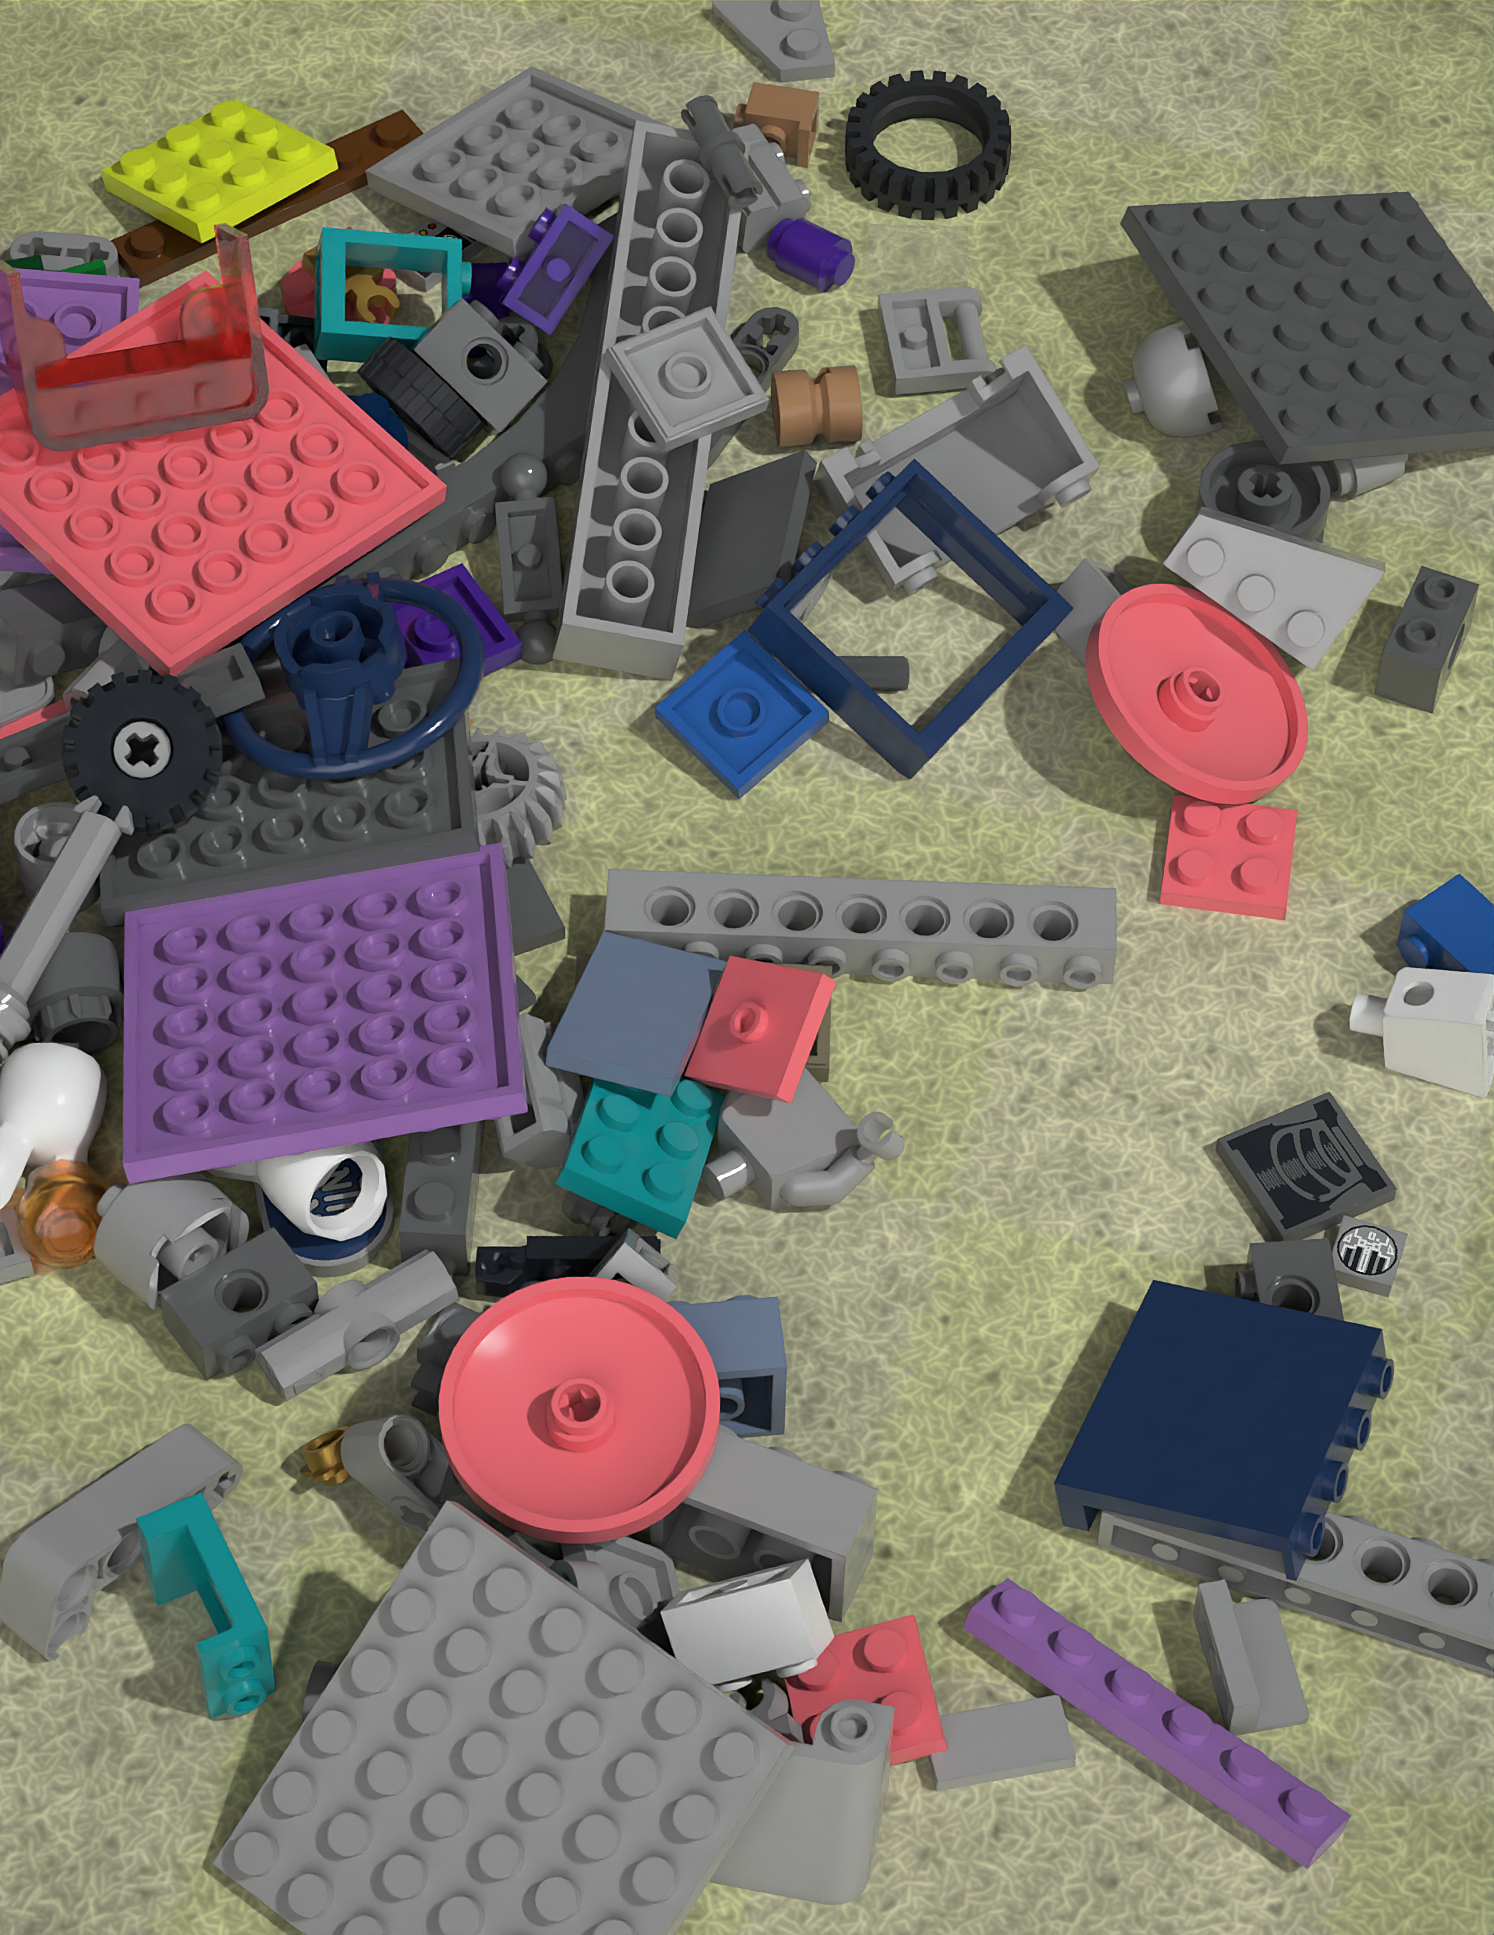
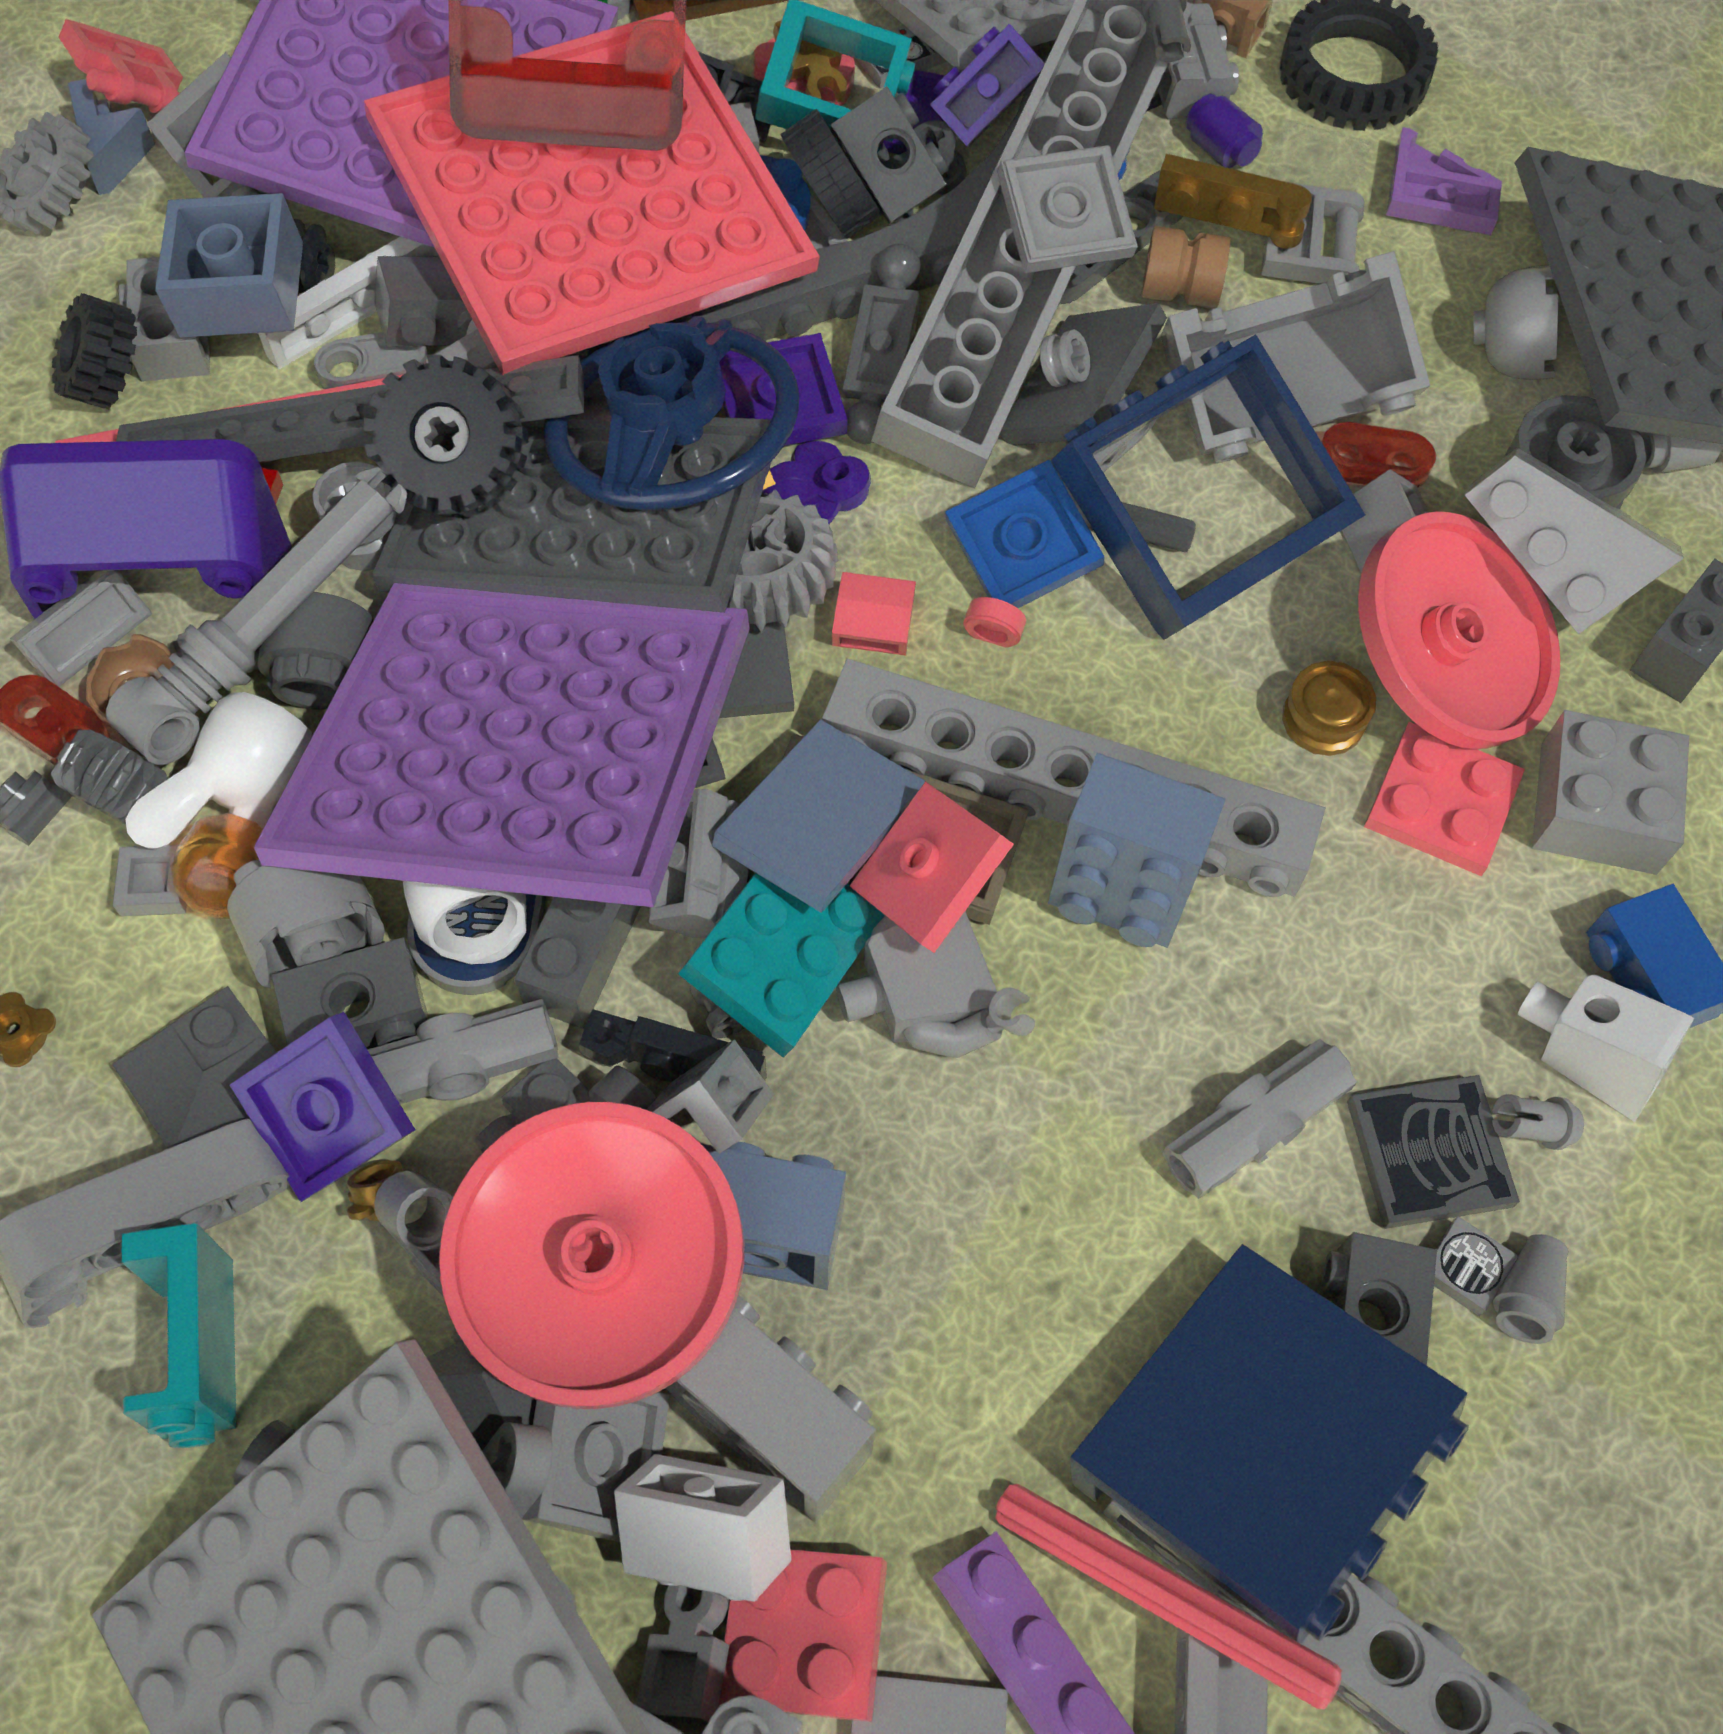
camera: 15 degrees right, 10 degrees up
(118, 1402) = (188, 1069): none -> dark grey plate
(257, 1389) = (322, 1106): none -> dark purple plate
(518, 706) = (822, 479): none -> dark purple plate
(614, 825) = (873, 613): none -> coral piece
(728, 527) = (1065, 358): none -> light grey bush
(738, 801) = (994, 621): none -> coral tile
(845, 325) = (1233, 199): none -> pearl gold plate
(948, 969) = (1133, 851): none -> sand blue brick
(1054, 261) = (1441, 189): none -> medium lavender wing
(1067, 543) = (1376, 451): none -> clear red plate
(1092, 801) = (1328, 708): none -> pearl gold wheel
(1137, 1179) = (1259, 1117): none -> light grey piece
(1169, 1567) = (1170, 1596): none -> coral axle
(1382, 809) = (1611, 792): none -> light grey brick
(1404, 1114) = (1550, 1121): none -> light grey pin
(1429, 1259) = (1534, 1291): none -> light grey cone

